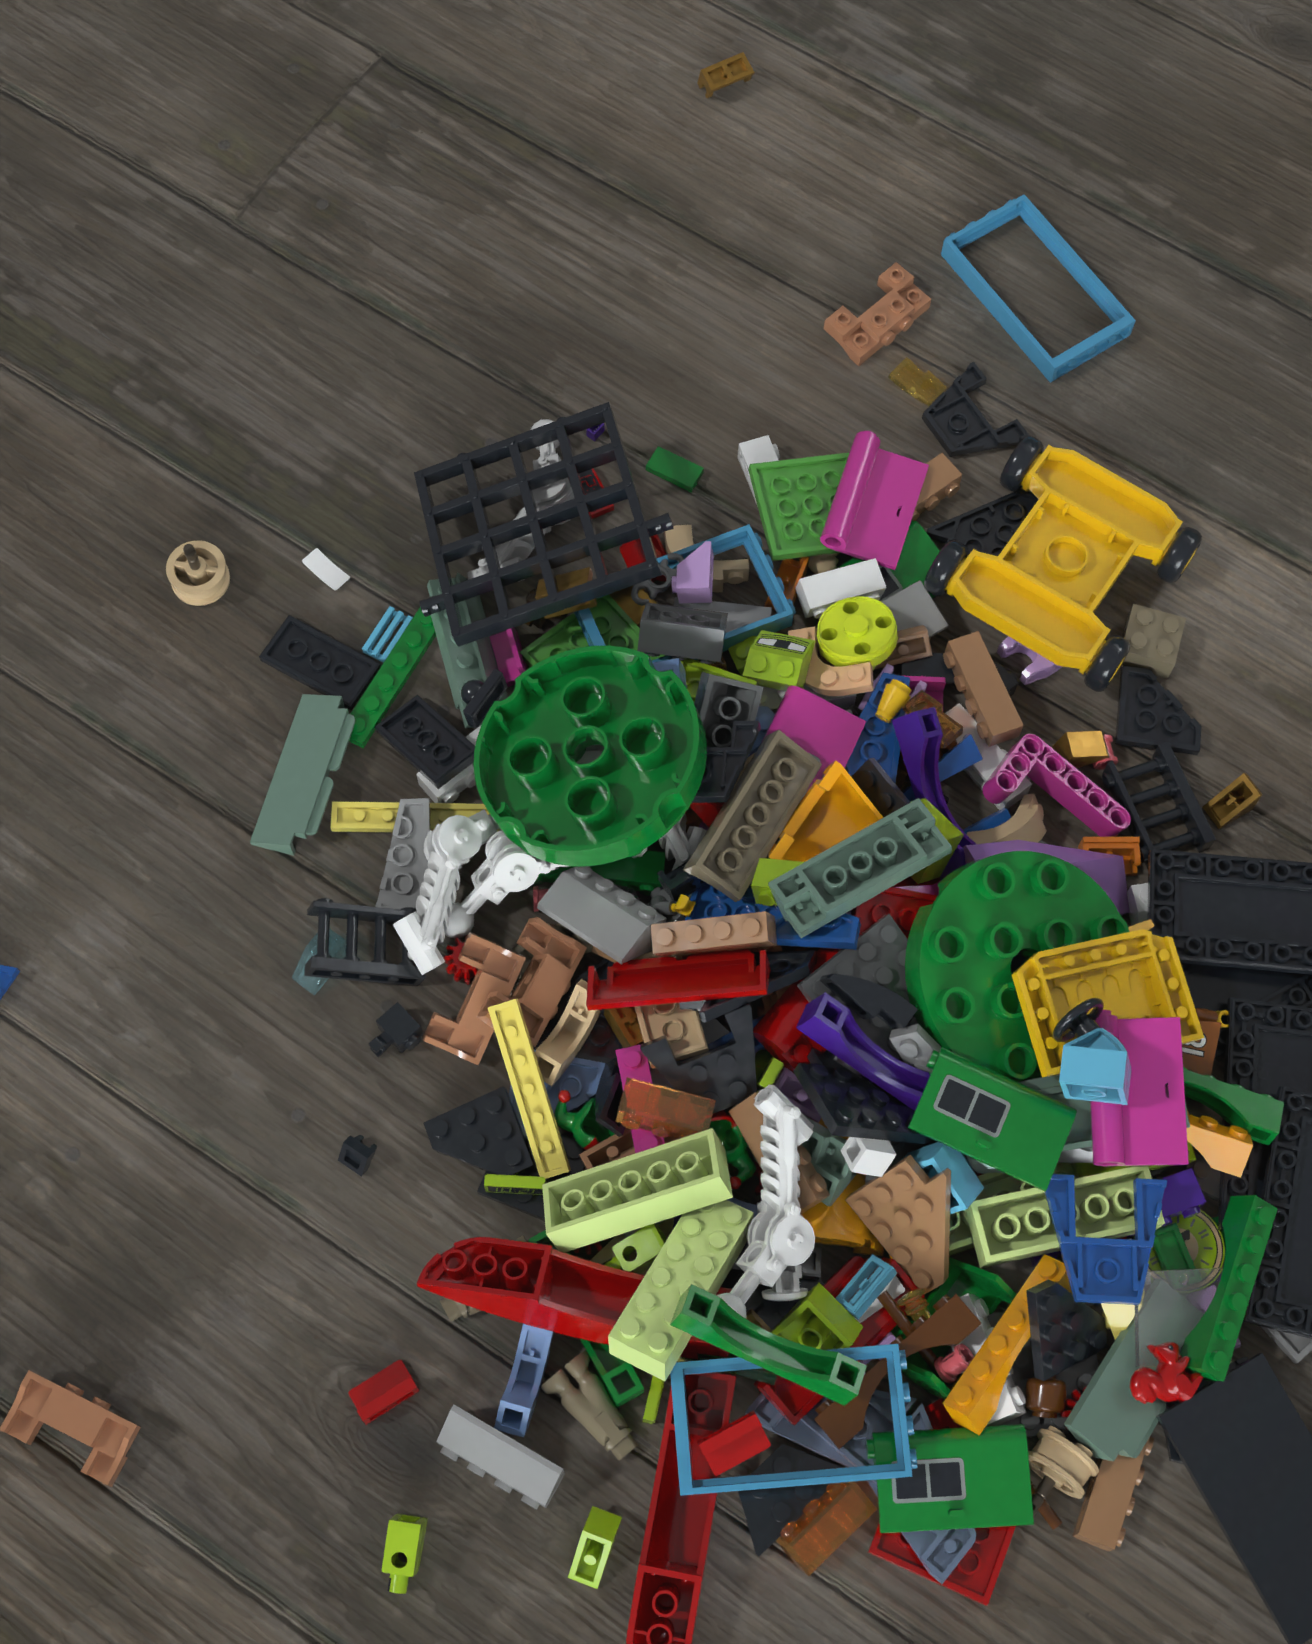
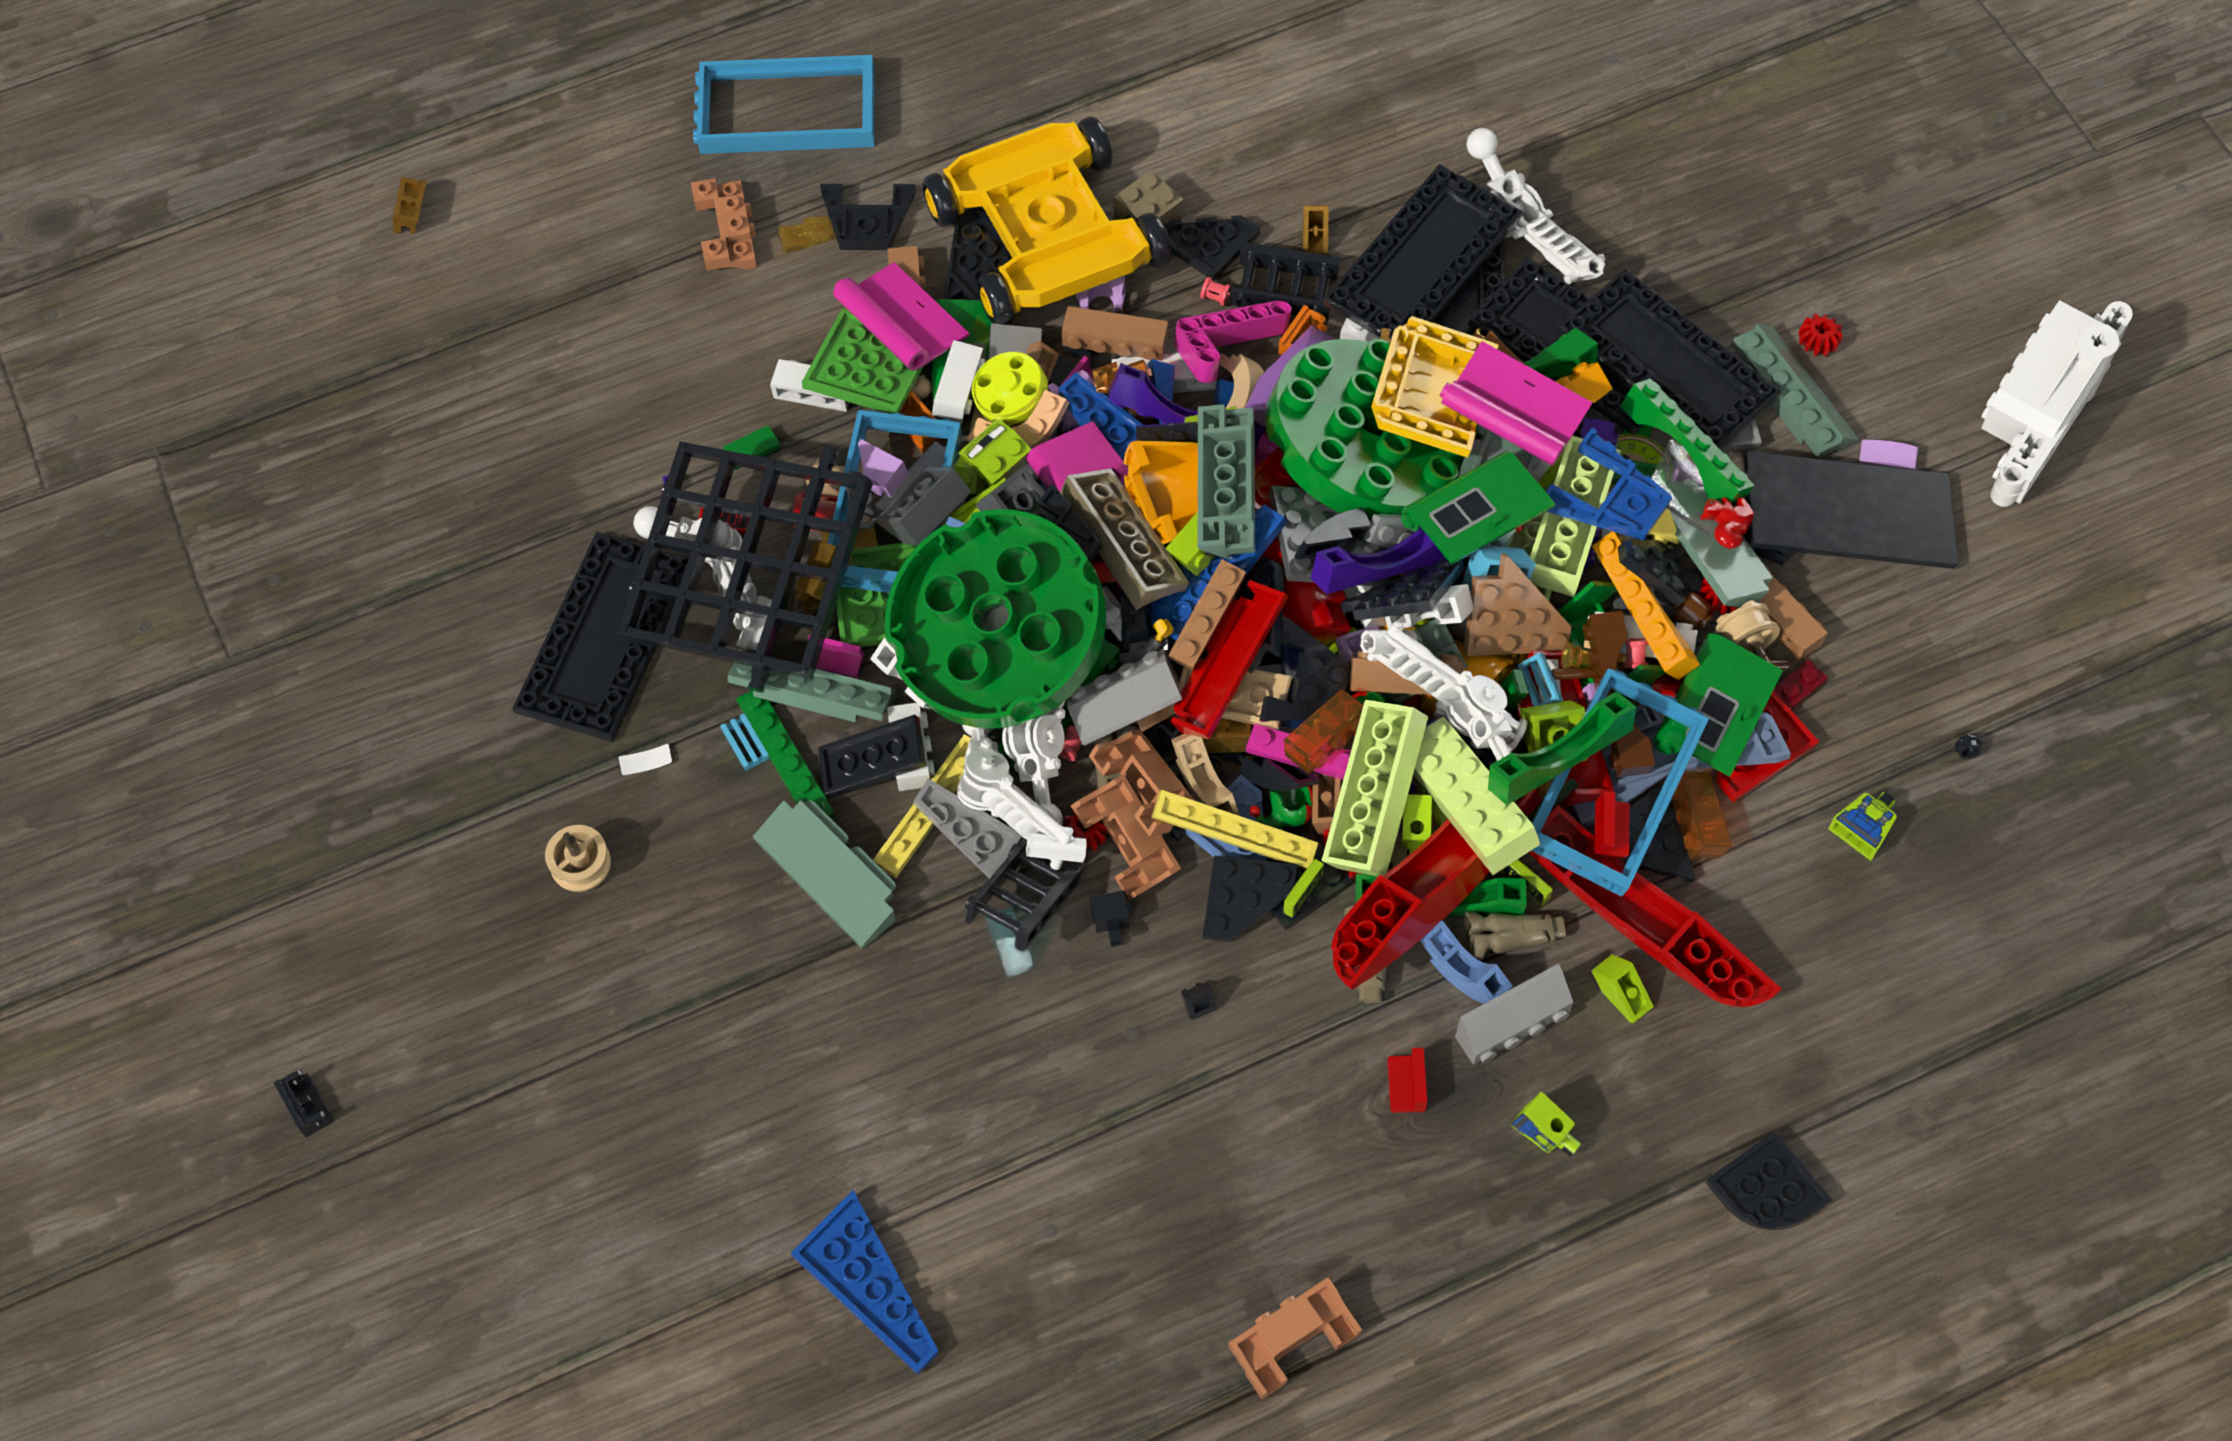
camera: 55 degrees left, 5 degrees down
(319, 661) = (729, 808): black tile -> none
(370, 474) = (584, 667): none -> black tile
(481, 696) = (867, 687): black tile -> none
(770, 1073) = (1341, 642): lime tile -> none
(839, 1263) = (1514, 688): none -> green tile
(892, 700) = (1088, 390): yellow cone -> none
(1042, 1550) = (1800, 684): none -> dark red plate
(1082, 747) = (1206, 298): slope -> none
(1095, 1062) = (1490, 404): medium azure piece -> none

